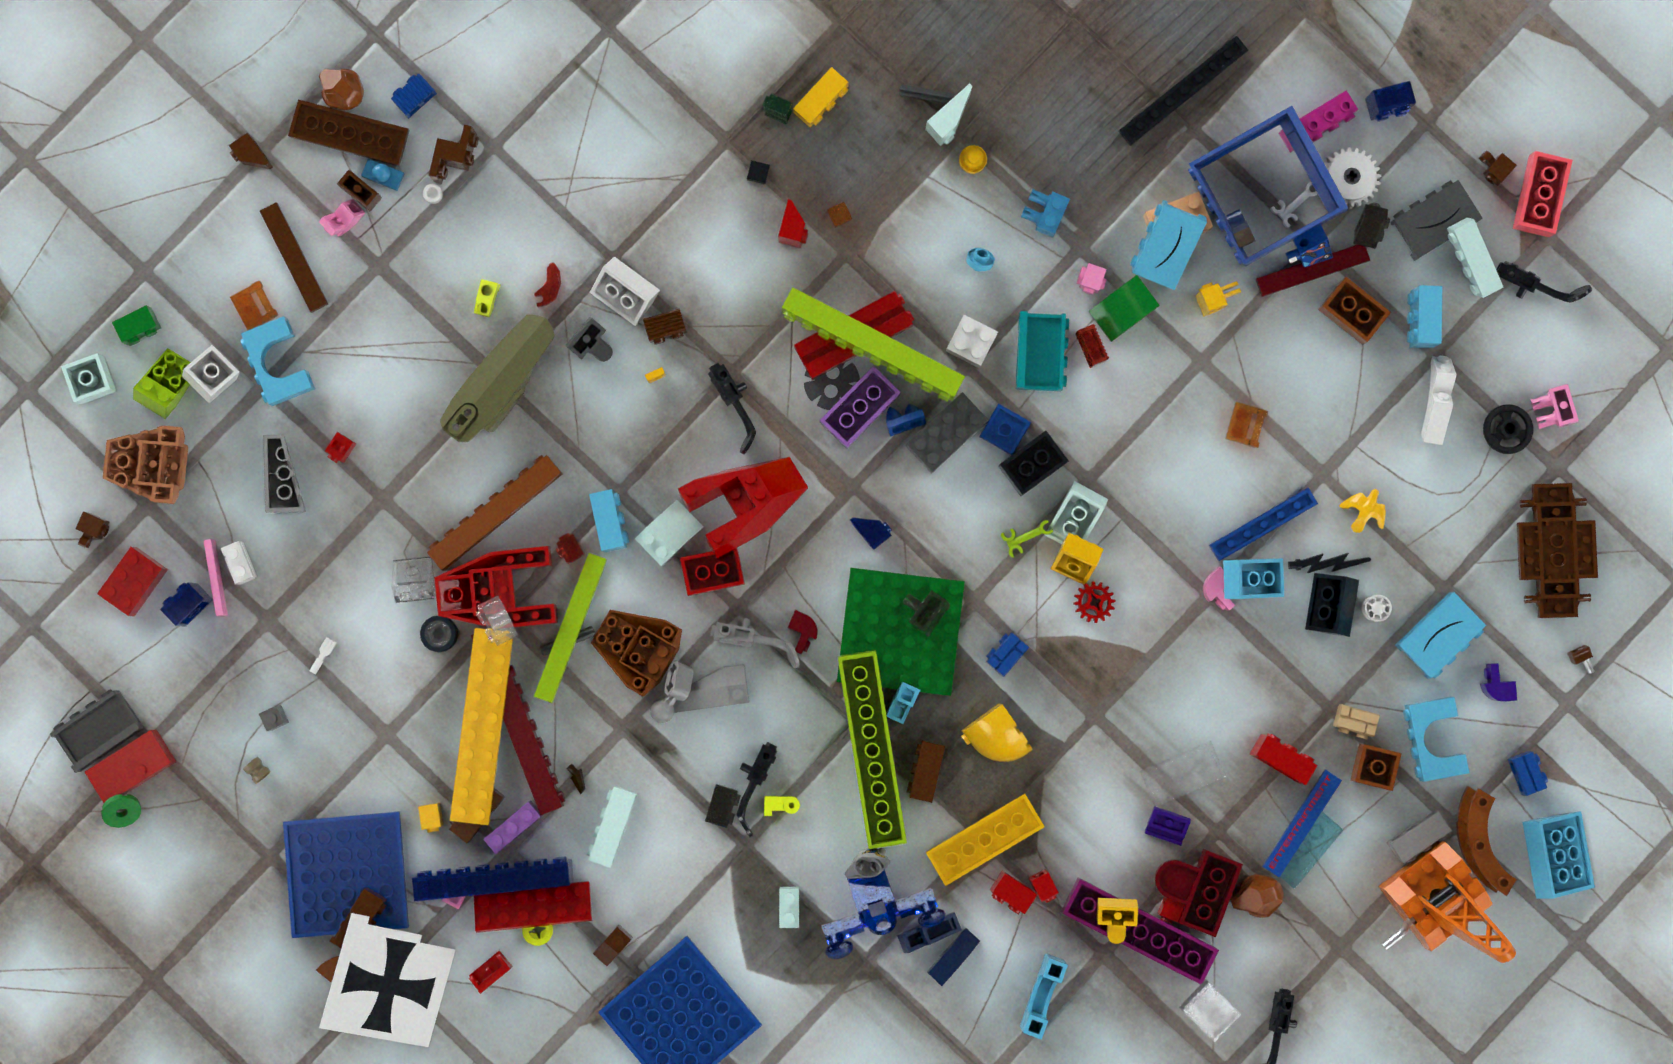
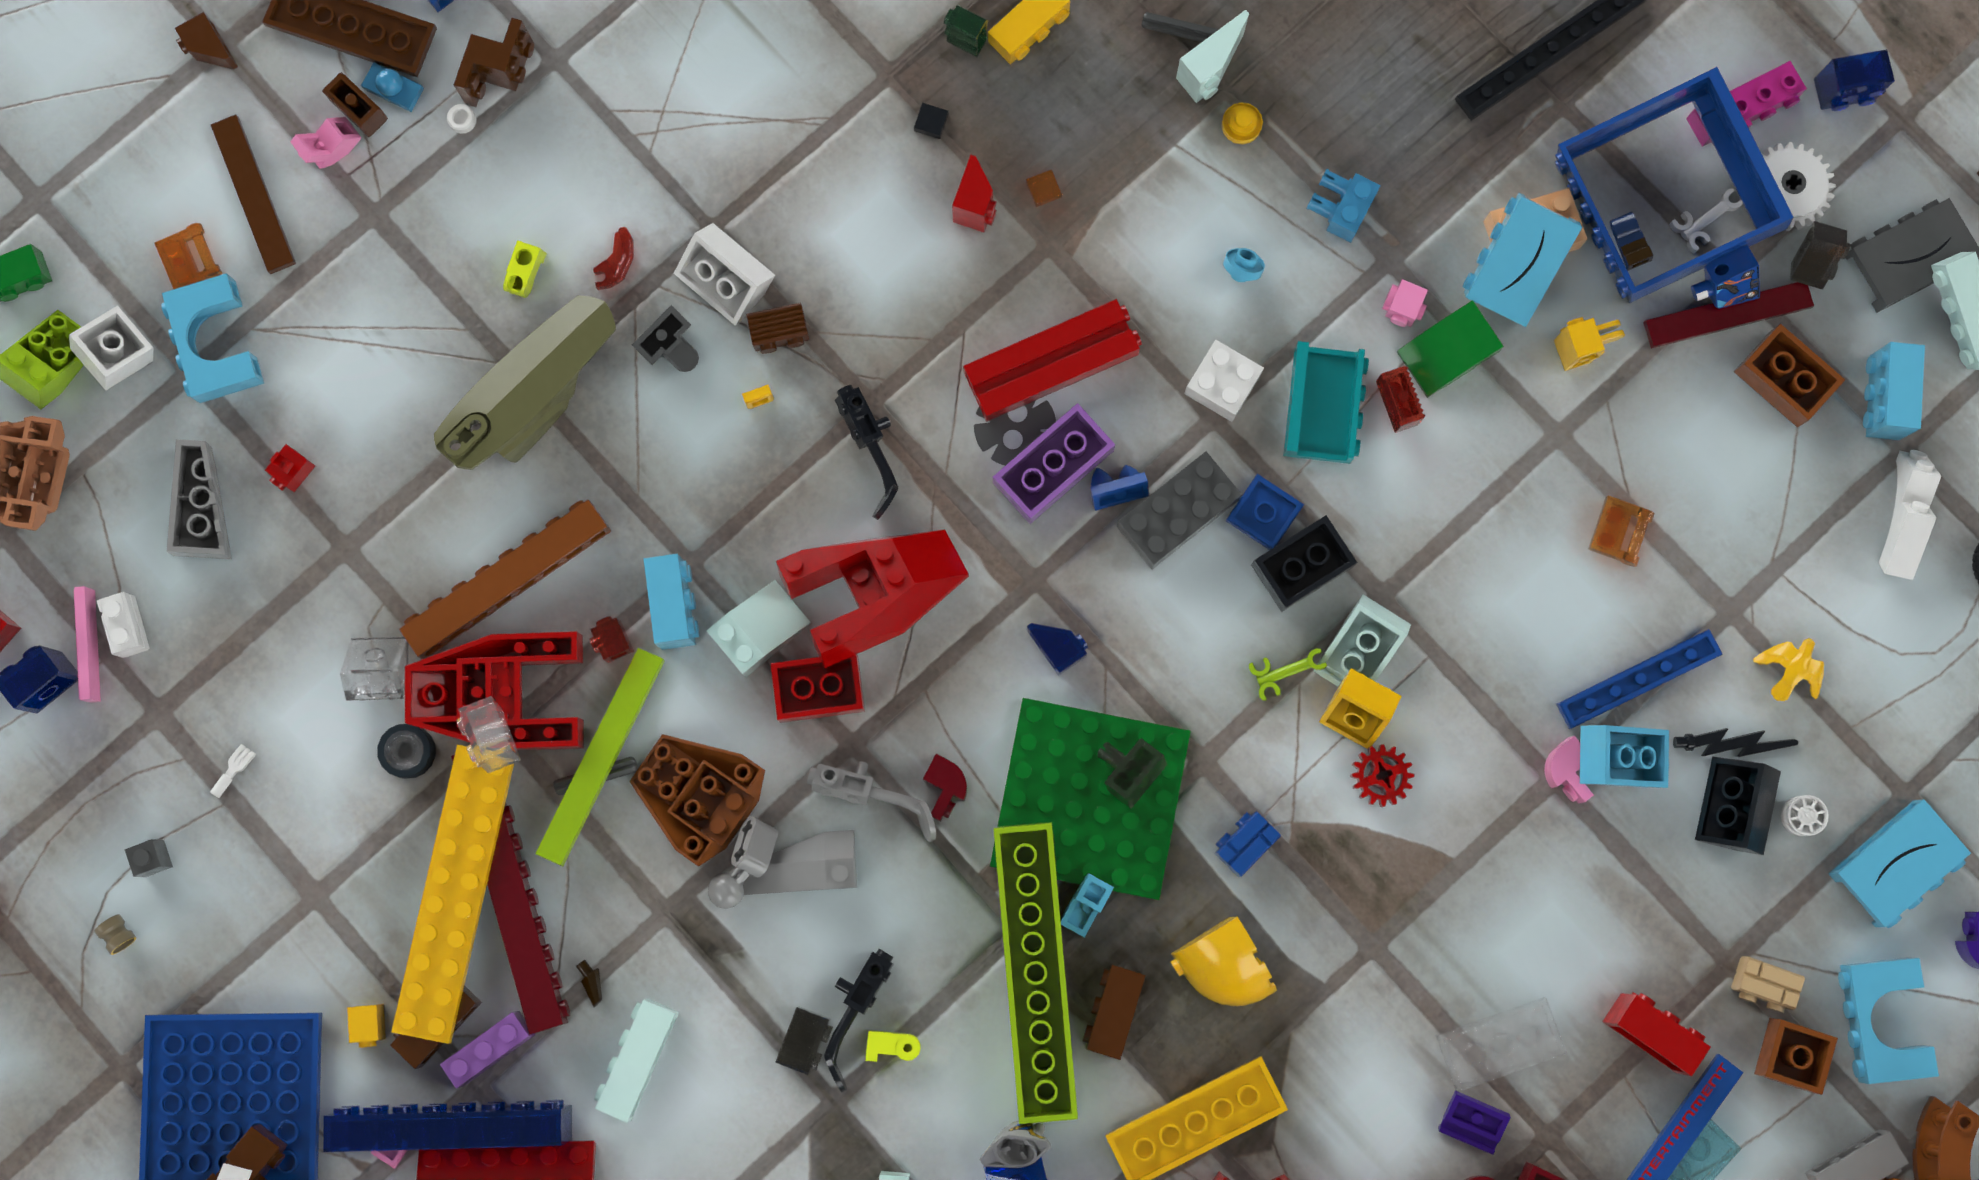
camera: 10 degrees right, 5 degrees down
(872, 344) = (1078, 371): lime brick -> none

